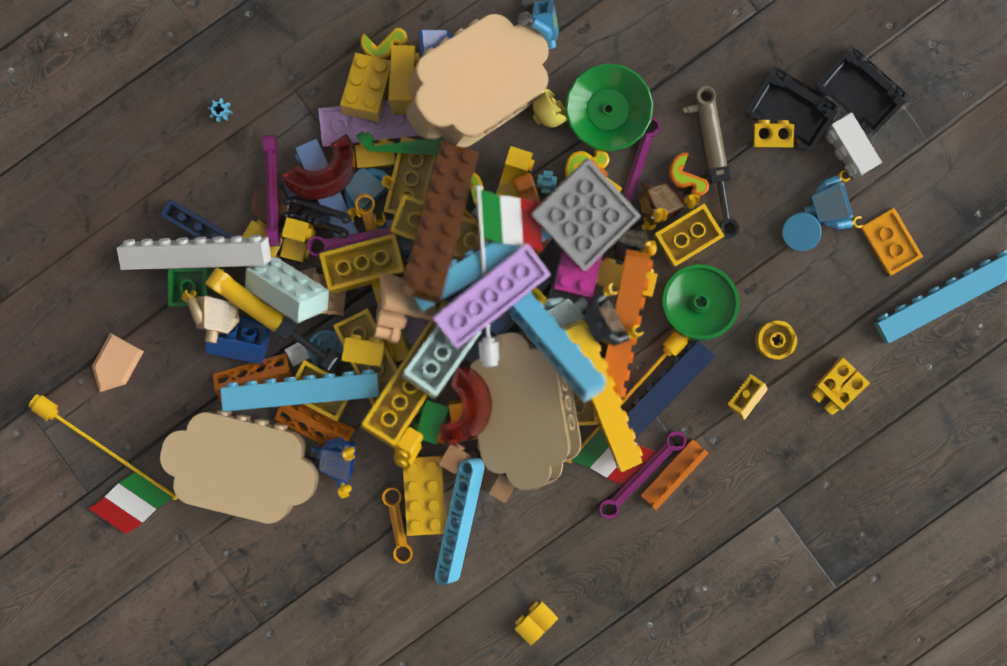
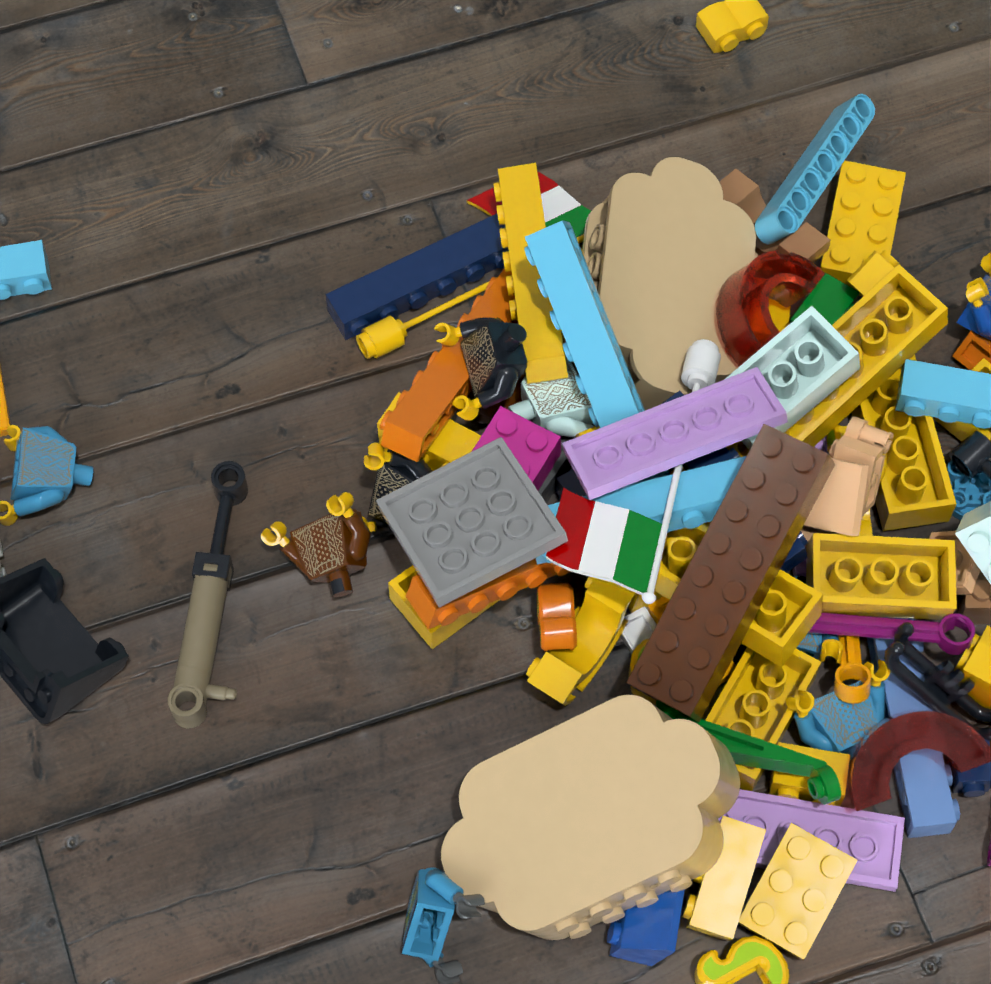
camera: 160 degrees left, 25 degrees down
(363, 351) = (917, 440): yellow brick -> none
(397, 525) = (915, 205): light orange piece -> none
(546, 182) = (515, 641): medium azure gear -> none
(548, 110) = (464, 749): light yellow cylinder -> none
(577, 158) = (438, 660): animal -> none
(613, 87) = (358, 696): green dish -> none
(638, 163) = (346, 629): magenta piece -> none
(643, 473) = (485, 179): magenta piece -> none
(674, 474) = (451, 159): orange fence -> none
(683, 179) = (275, 580): animal -> none
(688, 235) = (298, 482): yellow brick -> none
(700, 302) = (319, 380): green dish -> none
(747, 396) = (295, 227): yellow brick -> none
(773, 139) = (99, 599): yellow brick -> none
(784, 333) = (218, 295): yellow brick -> none
(801, 231) = (110, 444): dark azure tile -> none
(835, 390) = (144, 209): yellow hips -> none

